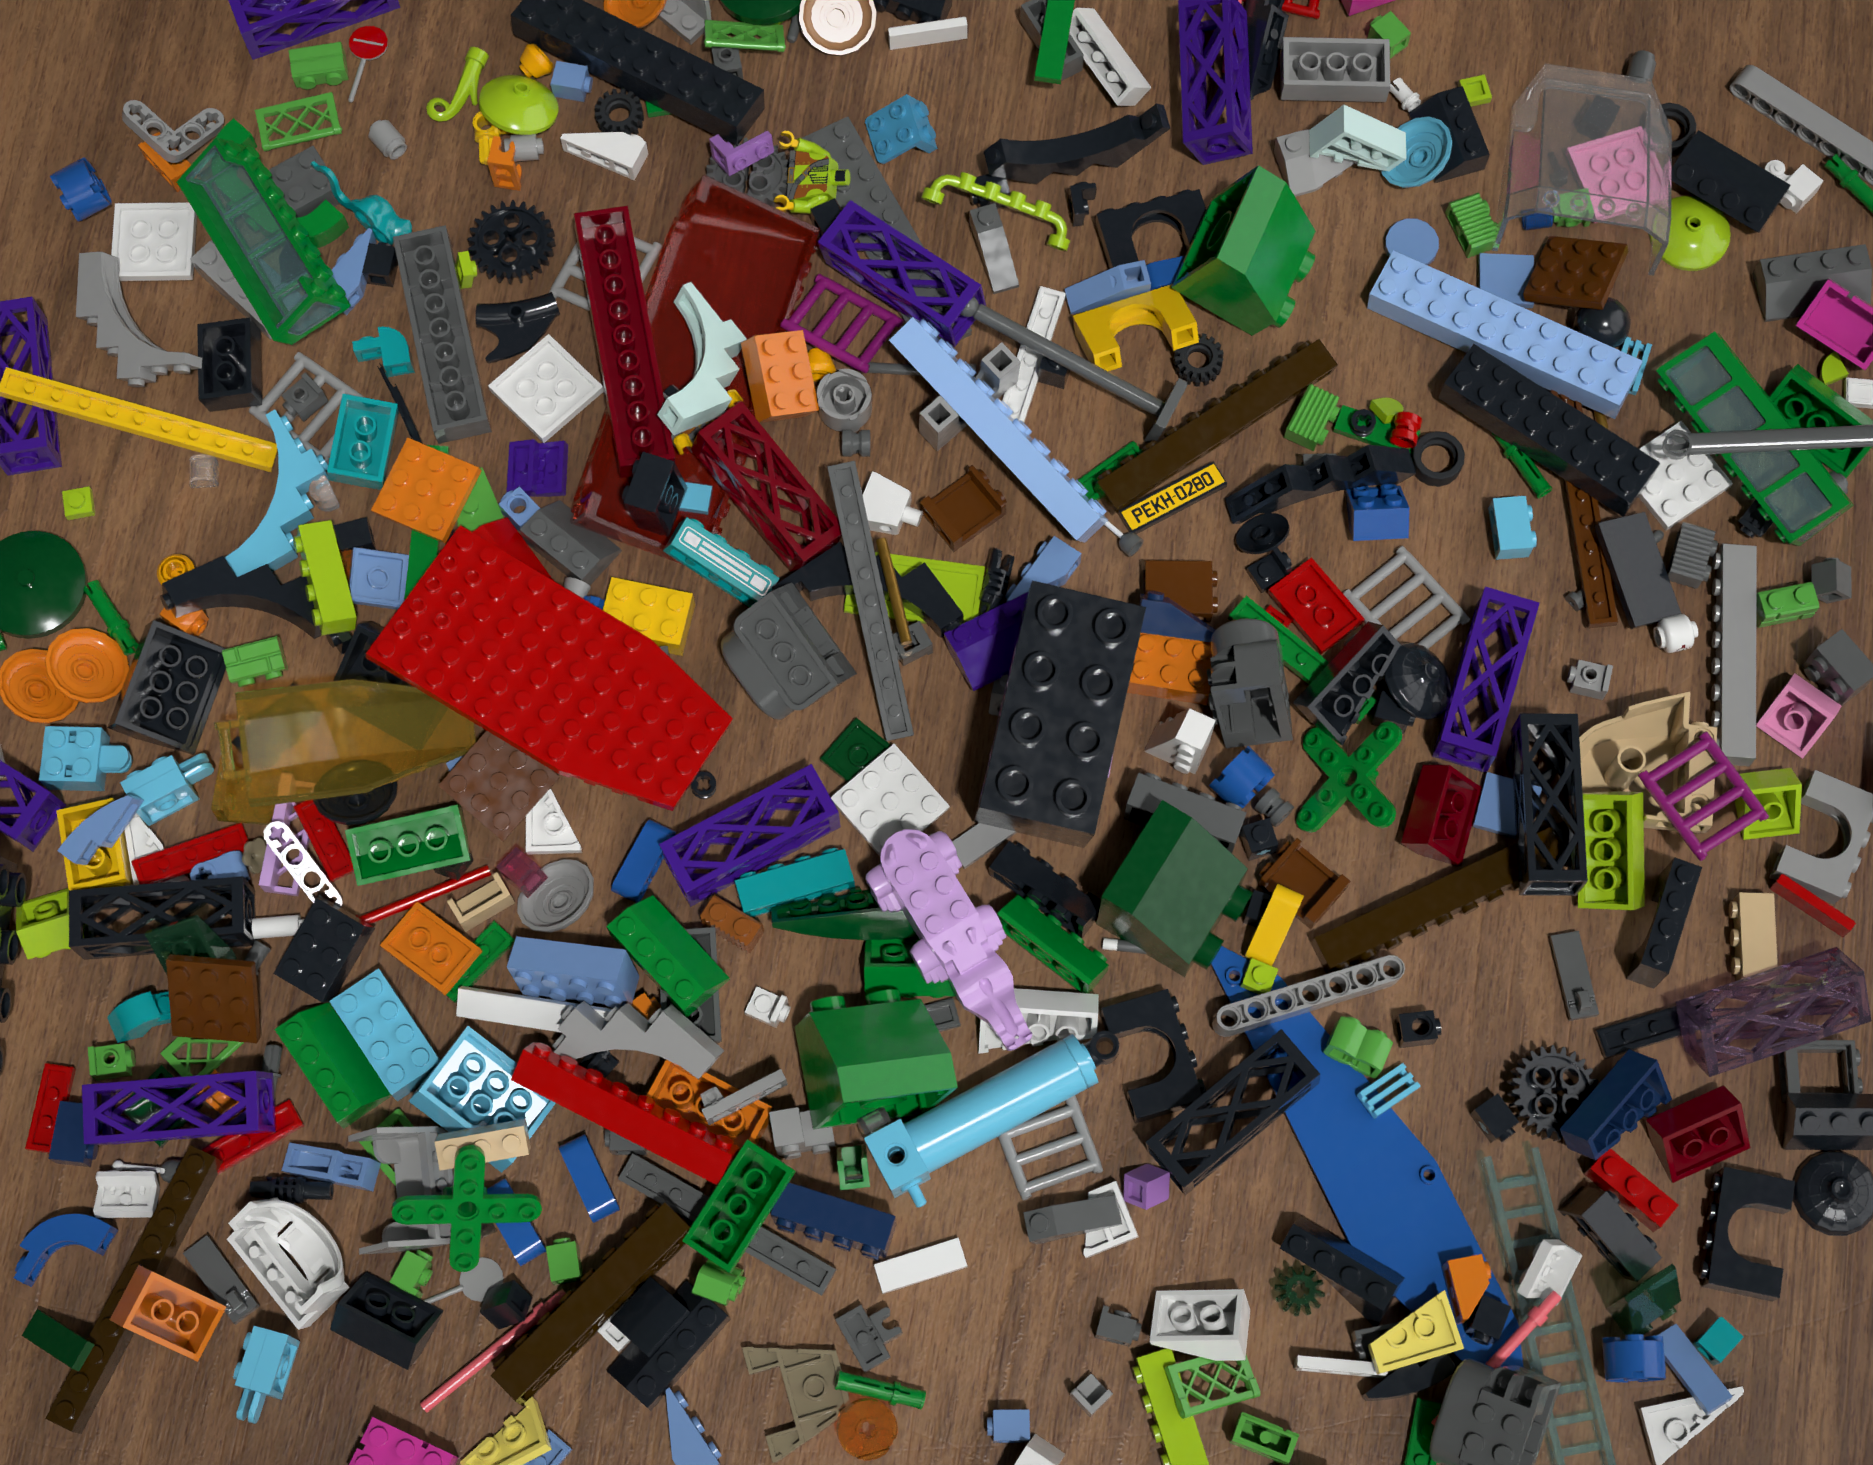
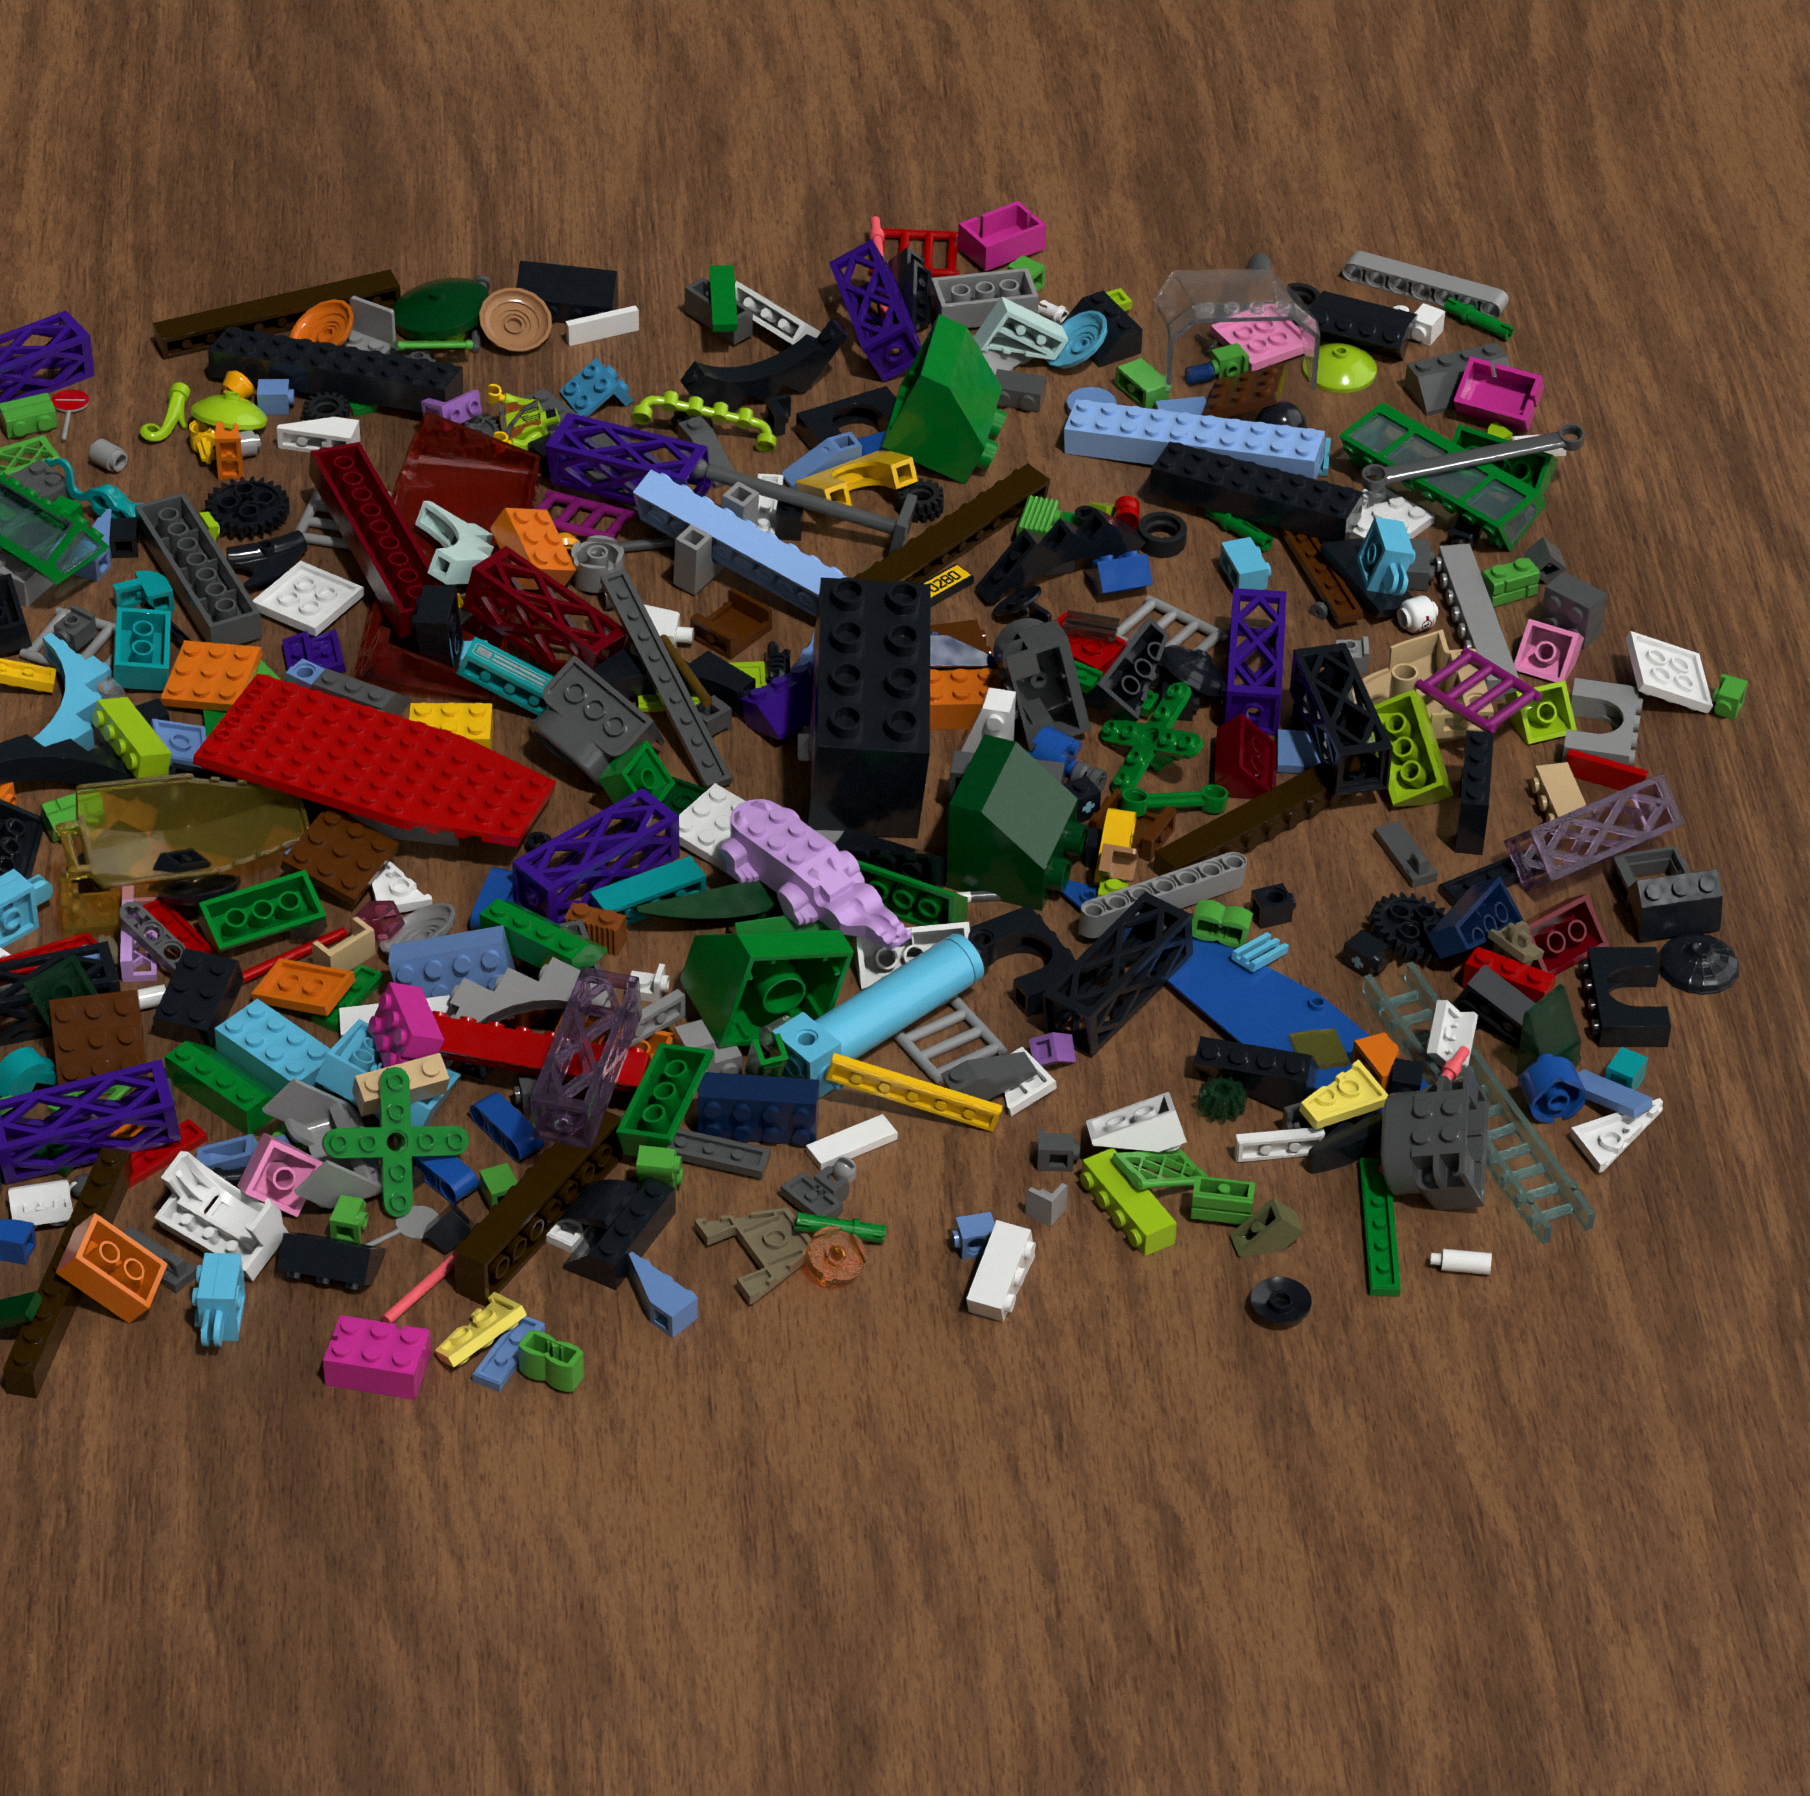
camera: 15 degrees left, 30 degrees down
(342, 763) = (181, 861): none -> black slope
(352, 1212) = (276, 1172): none -> bright pink slope
(501, 1073) = (404, 1025): none -> dark pink piece
(634, 1180) = (557, 1114): none -> clear purple piece
(813, 736) = (636, 770): none -> green slope
(900, 1306) = (844, 1168): none -> light grey hinge
(990, 1233) = (913, 1092): none -> yellow tile
(1270, 953) = (1118, 862): none -> medium nougat panel
(1333, 581) = (1091, 626): none -> clear smoke tile
(1338, 212) = (1021, 390): none -> dark grey brick
(1353, 857) = (1210, 799): none -> green piece
(1413, 1244) = (1321, 1044): none -> clear yellow piece
(1649, 1152) = (1515, 940): none -> dark tan hips
(1659, 568) = (1386, 557): none -> medium azure brick

